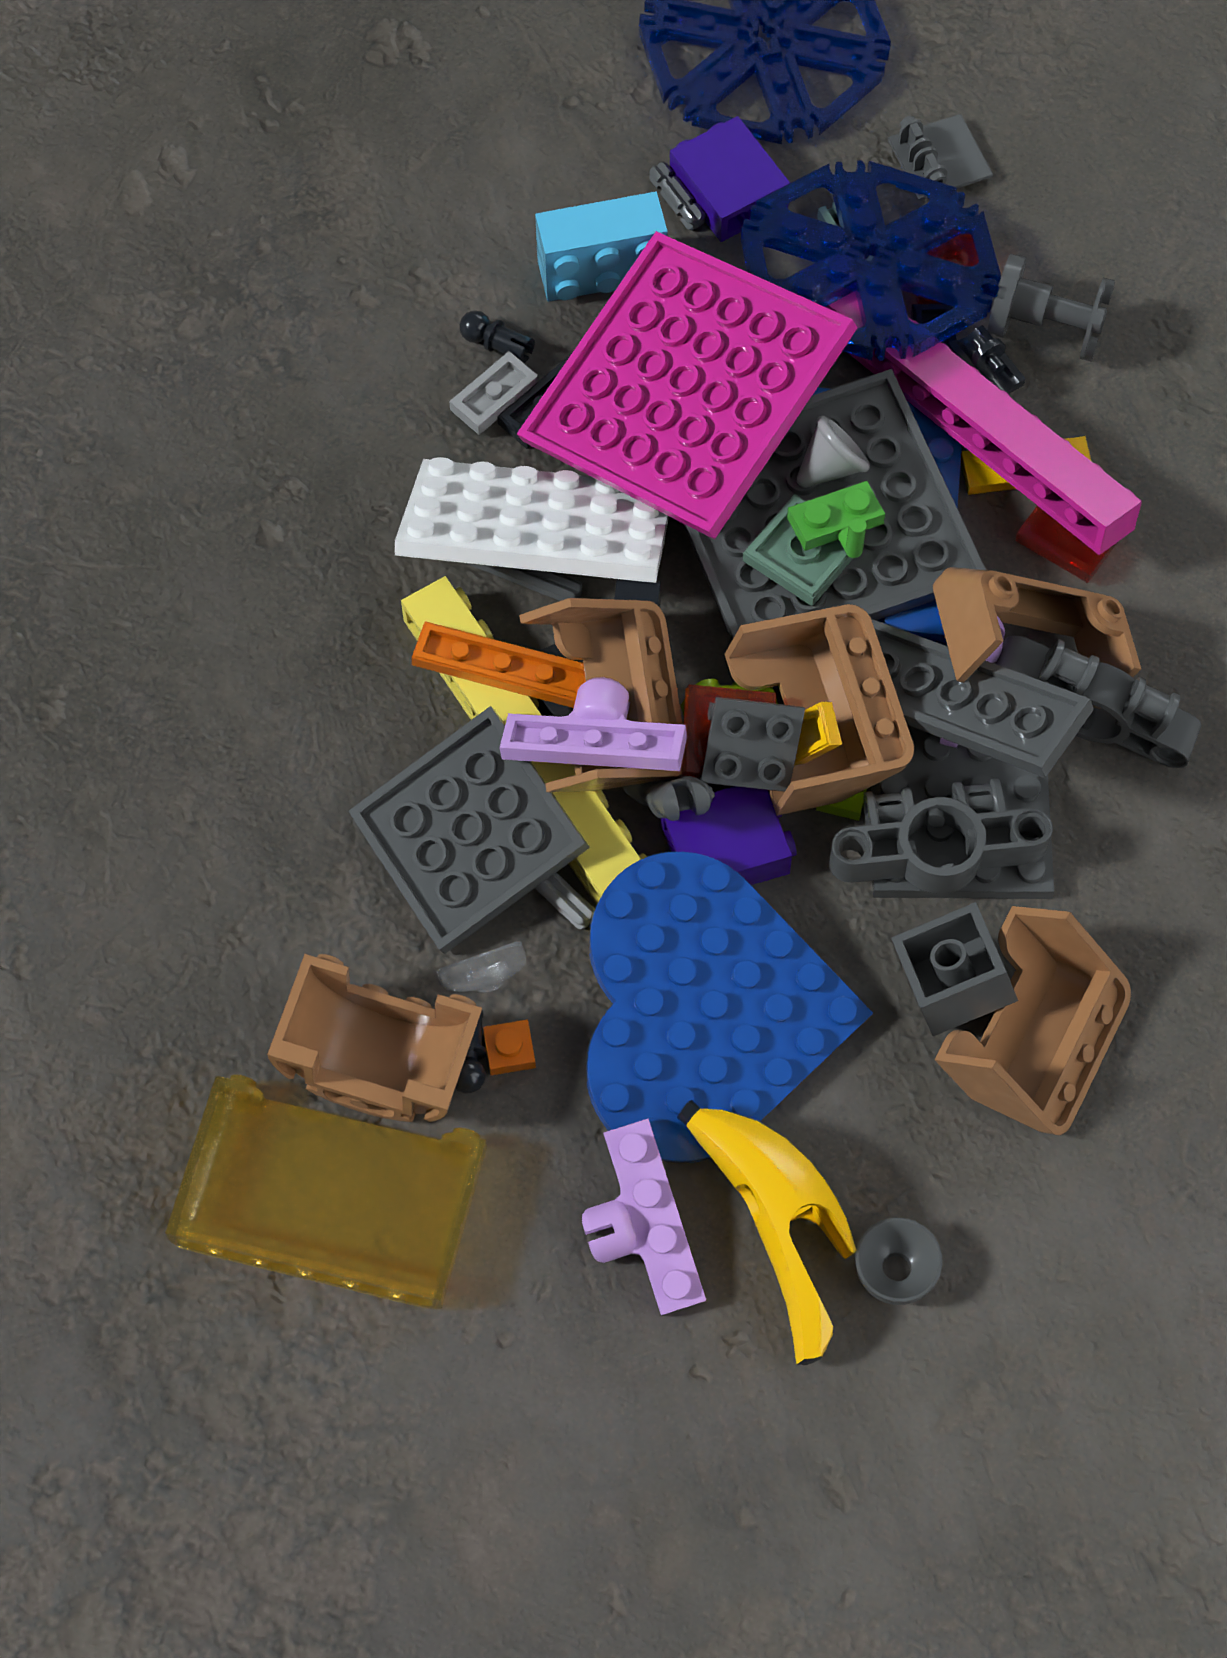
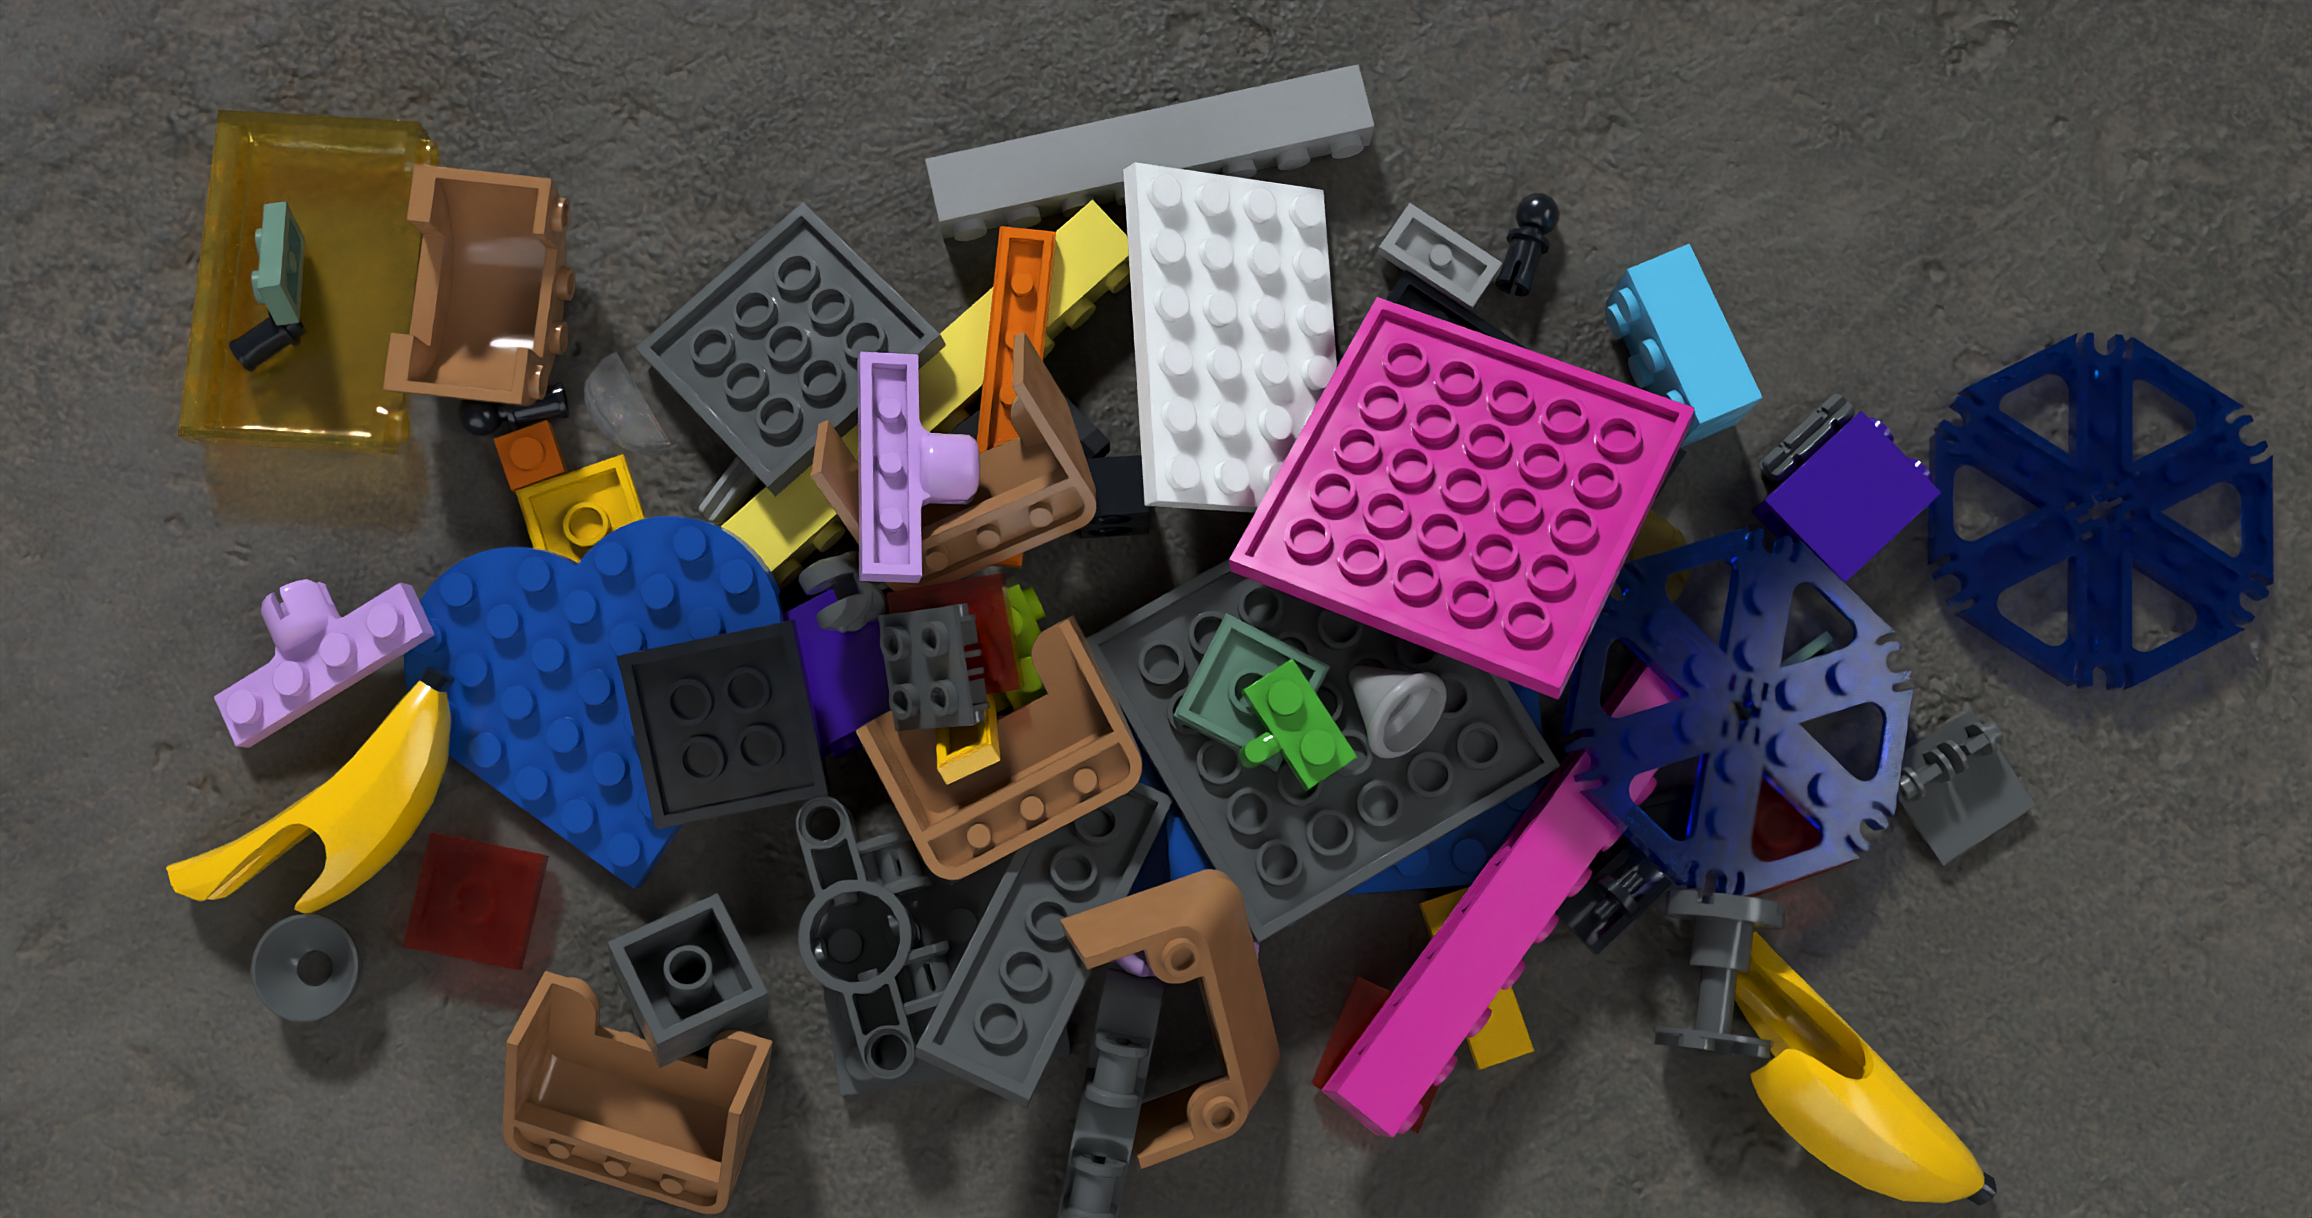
camera: 75 degrees right, 15 degrees up
(323, 1195) = (280, 264): none -> sand green plate
(367, 569) = (1217, 134): none -> light grey brick
(367, 1228) = (265, 341): none -> black pin
(563, 1012) = (580, 507): none -> yellow tile
(765, 898) = (724, 724): none -> black plate
(863, 1132) = (476, 901): none -> clear red plate
(1144, 250) = (1845, 1098): none -> yellow piece

